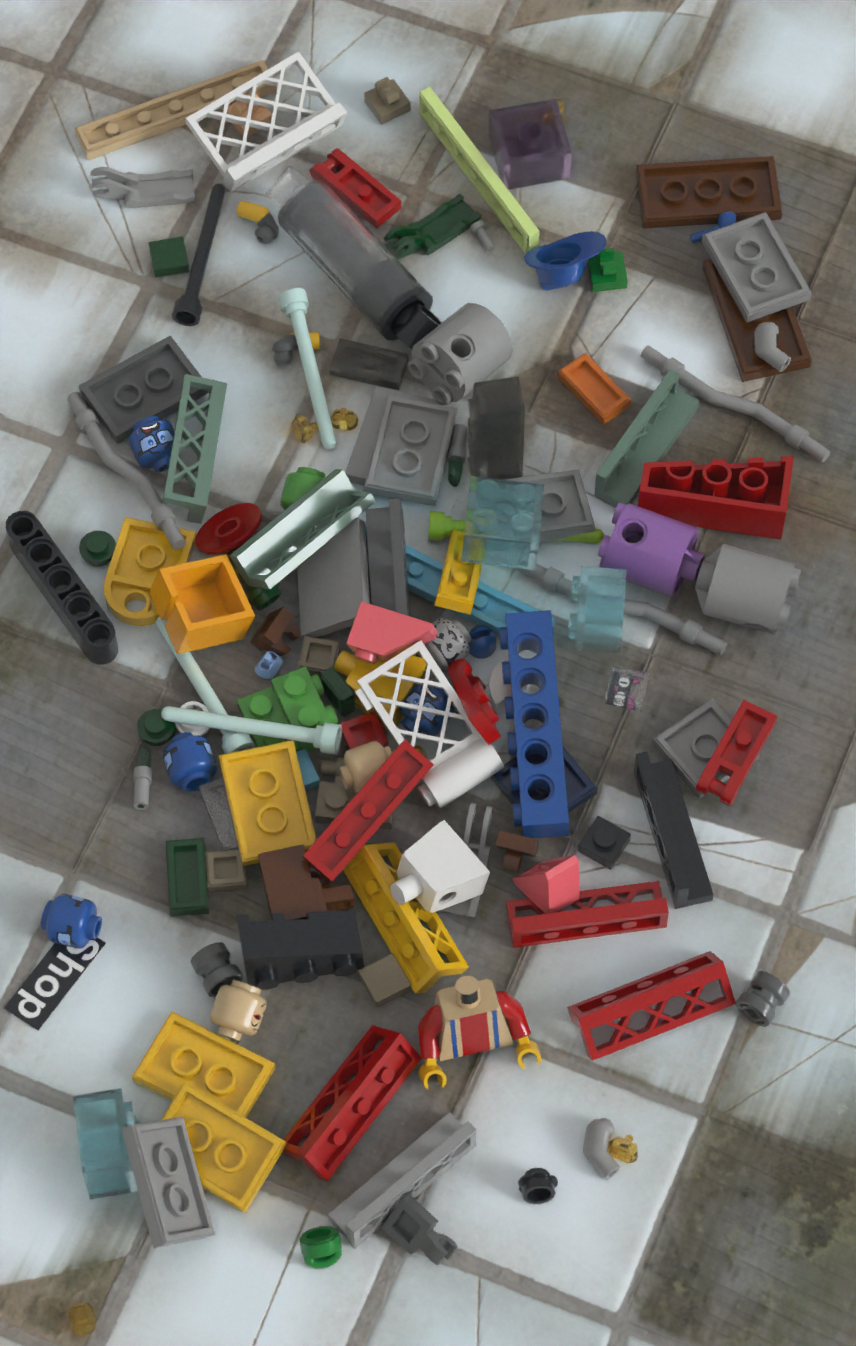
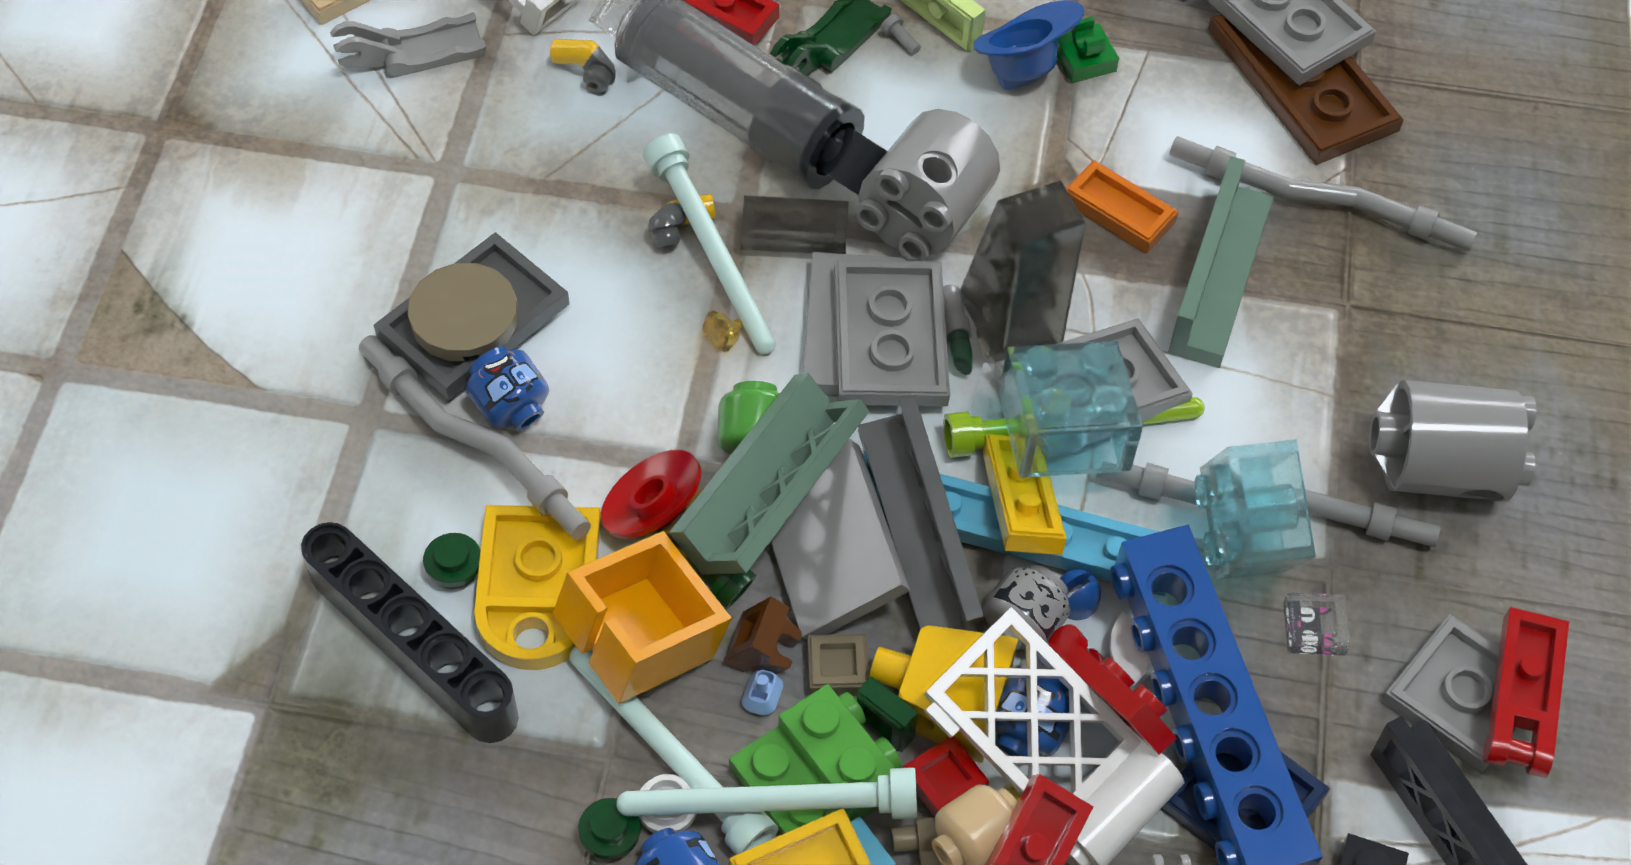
camera: 15 degrees left, 5 degrees down
(136, 387) = (463, 311): none -> dark tan tile
(169, 256) = (466, 129): dark green tile -> none
(188, 308) = (511, 191): black piece -> none
(205, 450) = (583, 375): sand green fence -> none
(344, 419) = (778, 307): clear yellow rock -> none
(385, 633) = (950, 608): coral slope -> none
(652, 549) = (1293, 398): medium lavender cylinder -> none
(720, 495) = (1356, 318): red wedge -> none
(766, 346) = (1342, 109): light grey arm -> none

